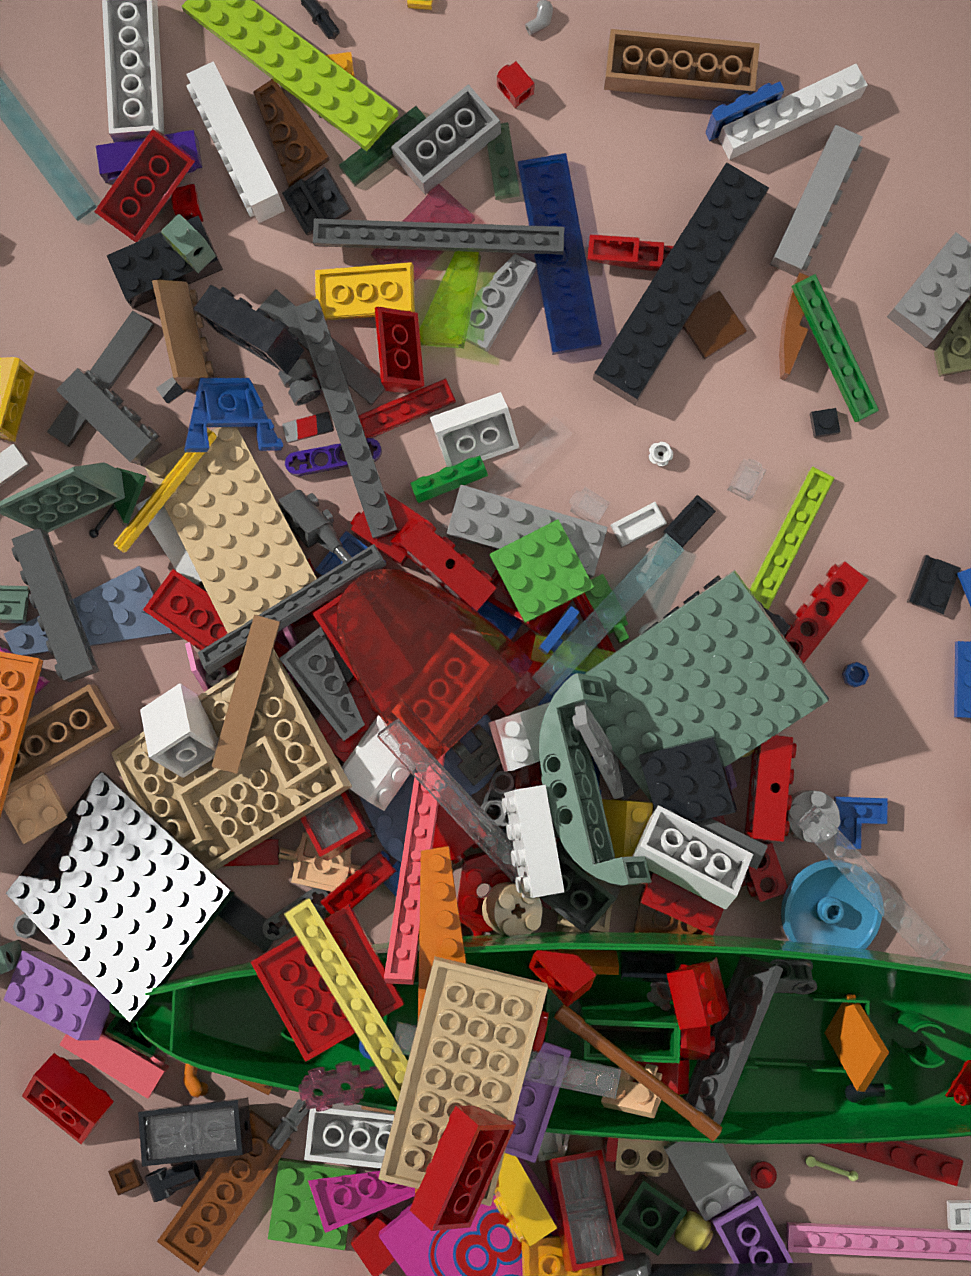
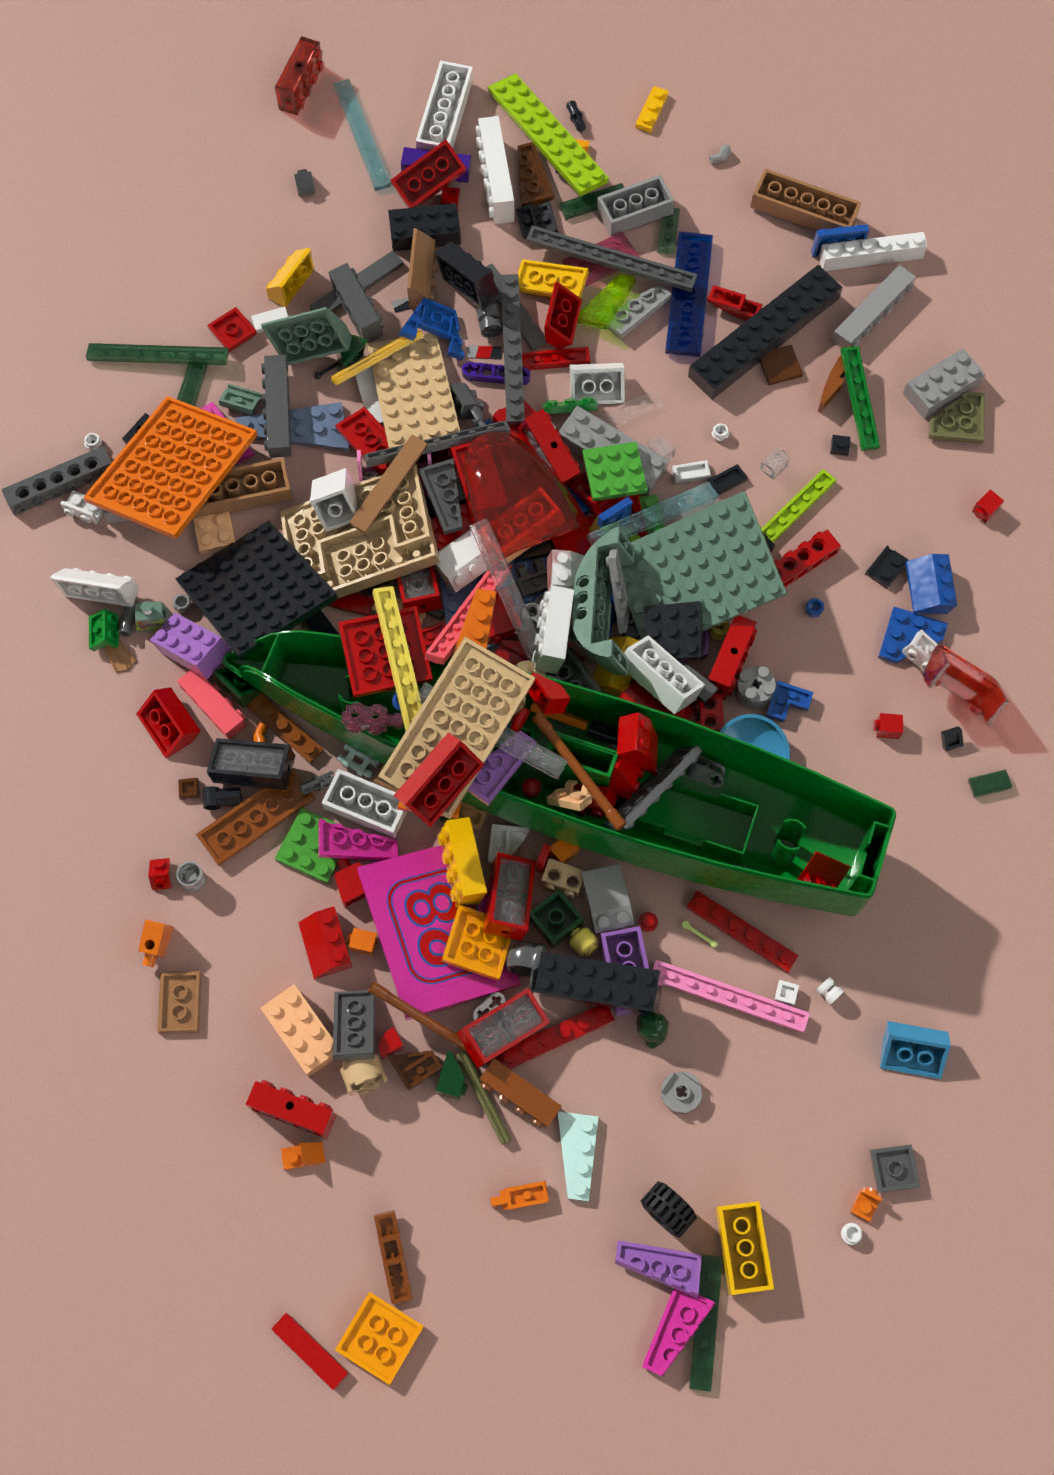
camera: 10 degrees right, 15 degrees down
(185, 241) = (442, 206): sand green torso -> none
(515, 84) = (692, 187): red brick -> none
(856, 1043) = (741, 830): orange tile -> none
(872, 885) = (774, 718): clear tile -> none

